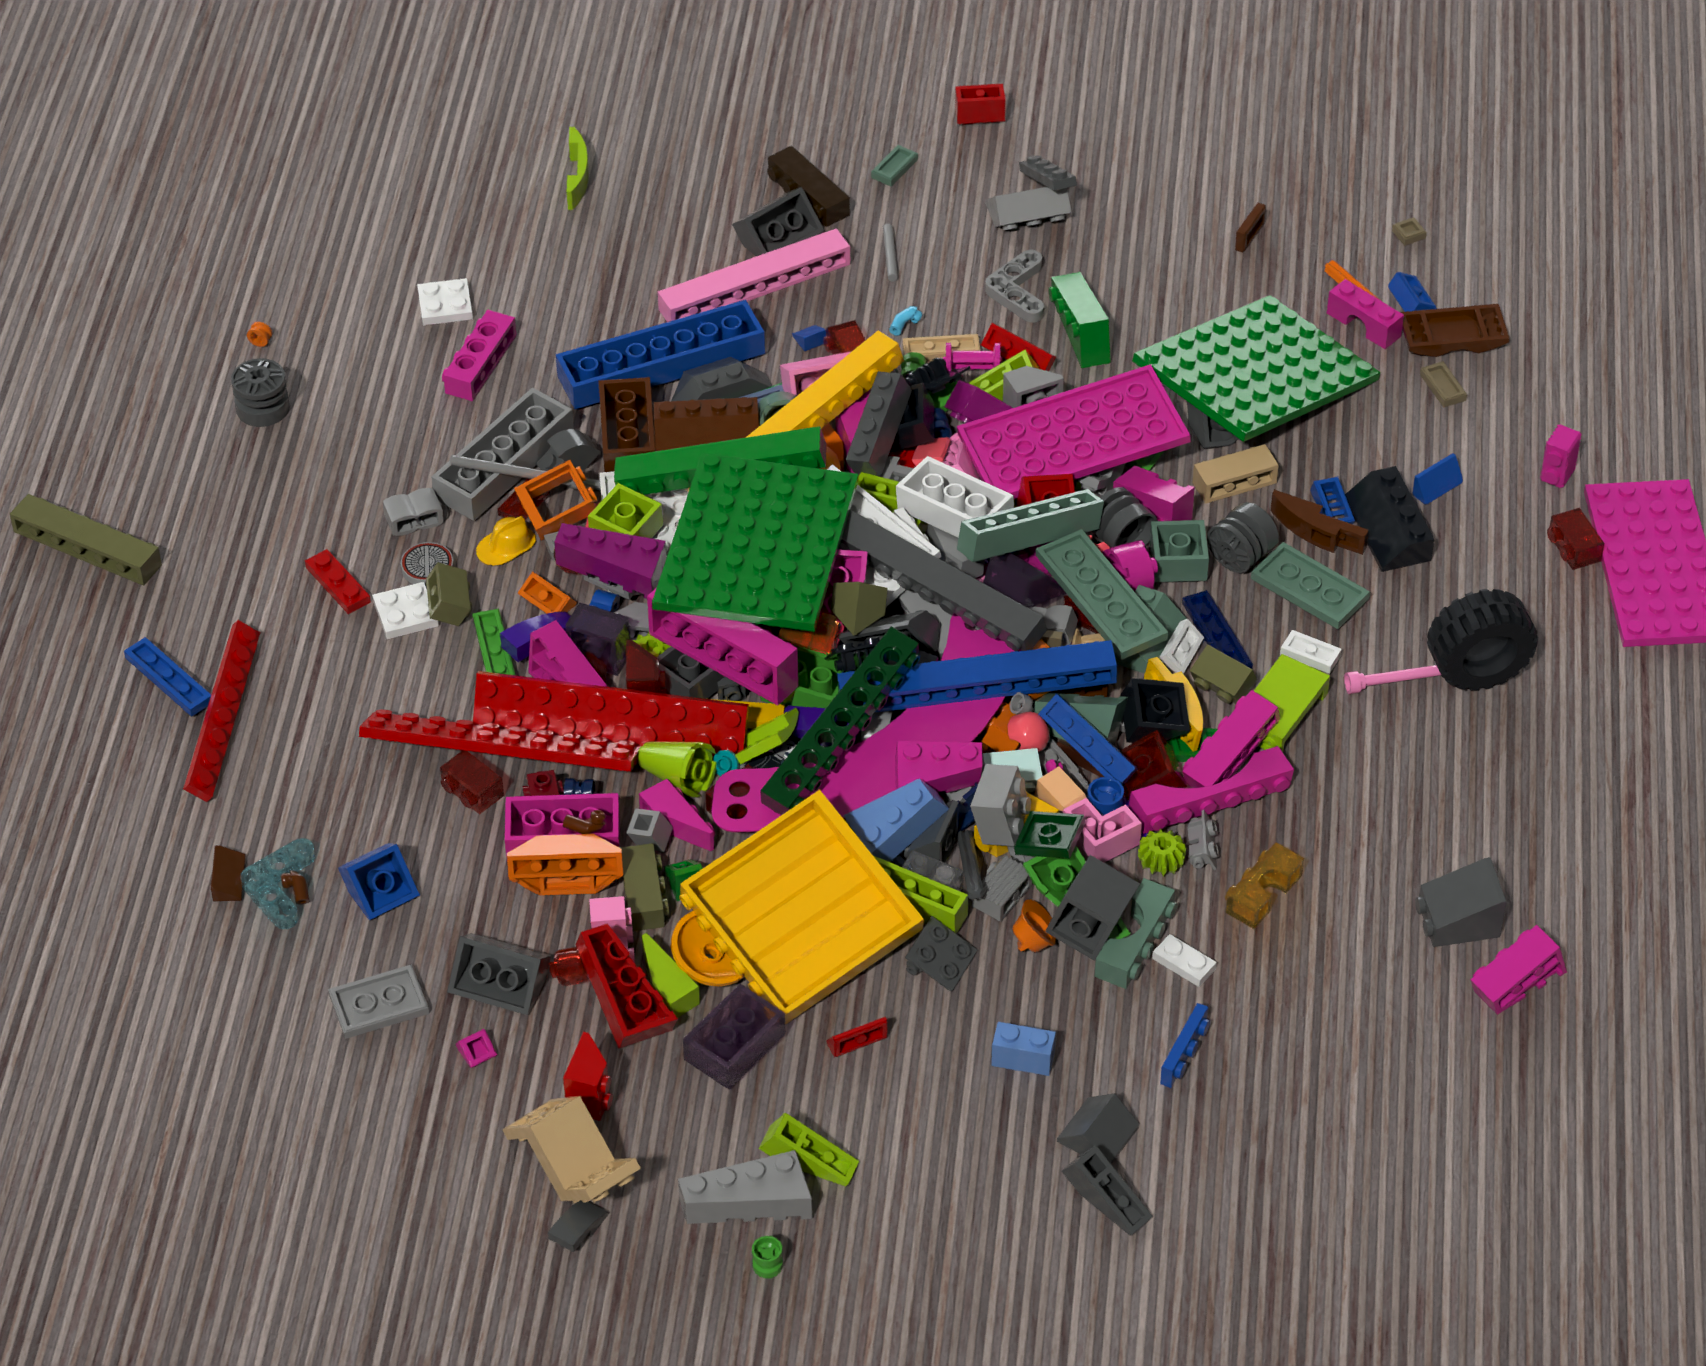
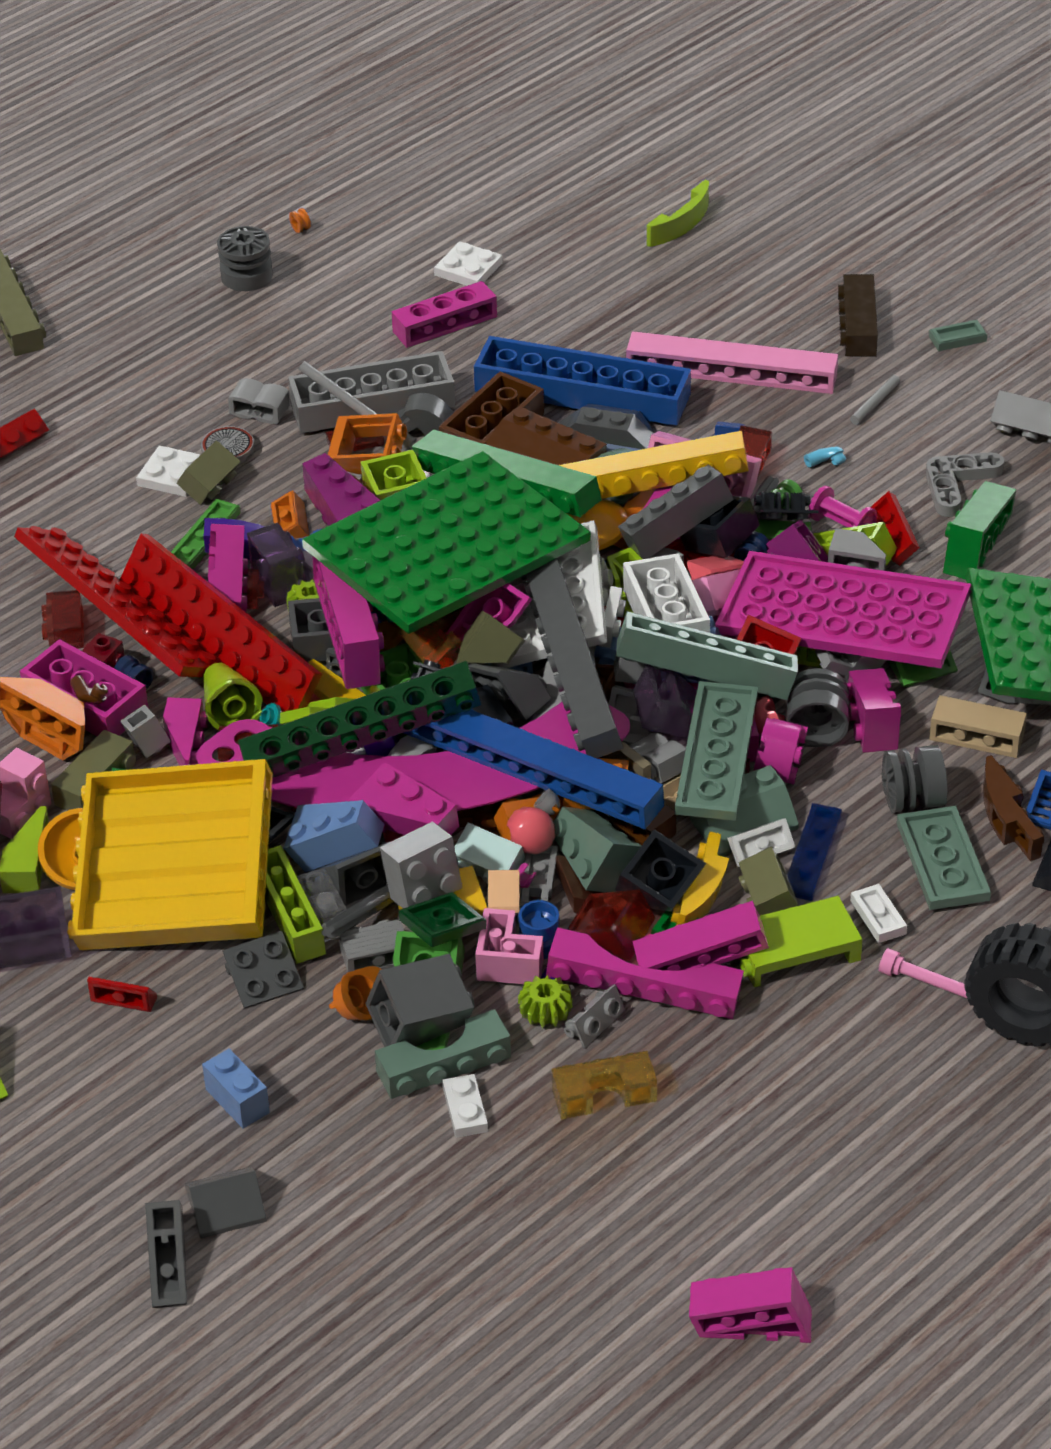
camera: 40 degrees right, 5 degrees down
(337, 581) = (148, 423): red plate -> none
(506, 542) = (291, 462): yellow piece -> none
(643, 670) = (269, 606): clear red slope -> none
(778, 223) = (799, 328): dark grey slope -> none
(936, 346) = (811, 482): tan tile -> none
(1087, 740) = (568, 864): blue plate -> none
(1179, 550) = (845, 760): sand green brick -> none
(1185, 1045) = (375, 1174): blue plate -> none
(1462, 905) = (762, 1214): dark grey slope -> none

